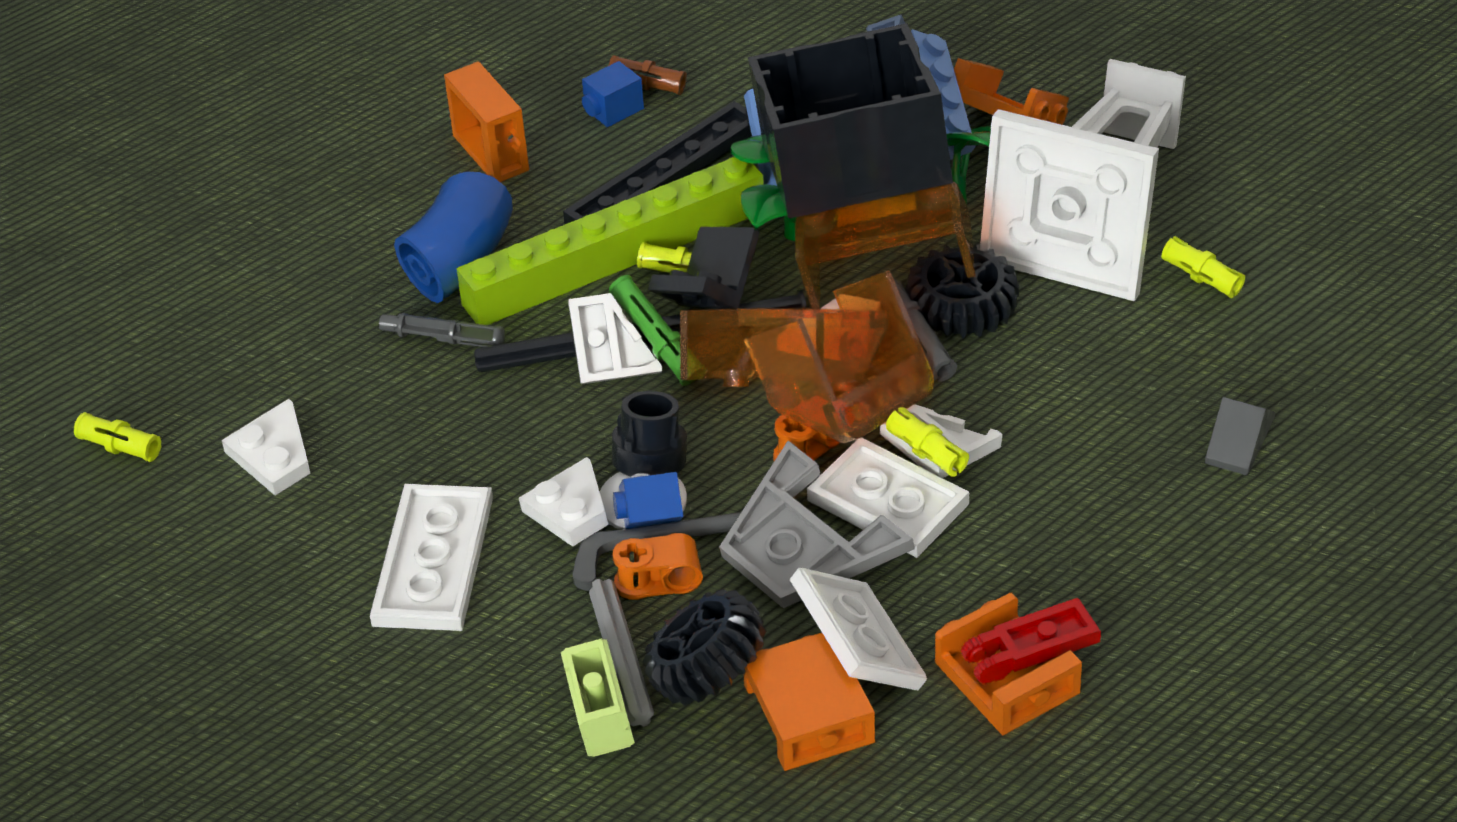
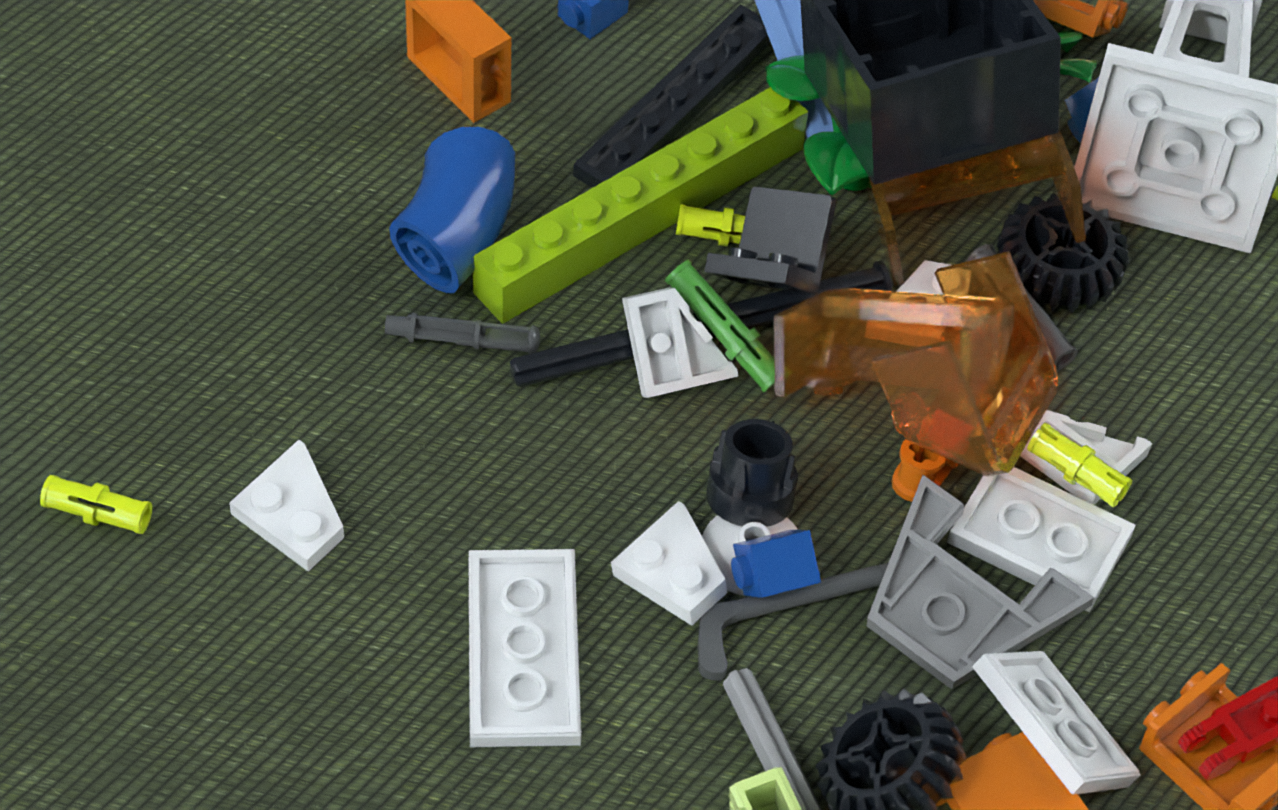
camera: 15 degrees left, 10 degrees up
(660, 563) = (804, 645): orange piece -> none

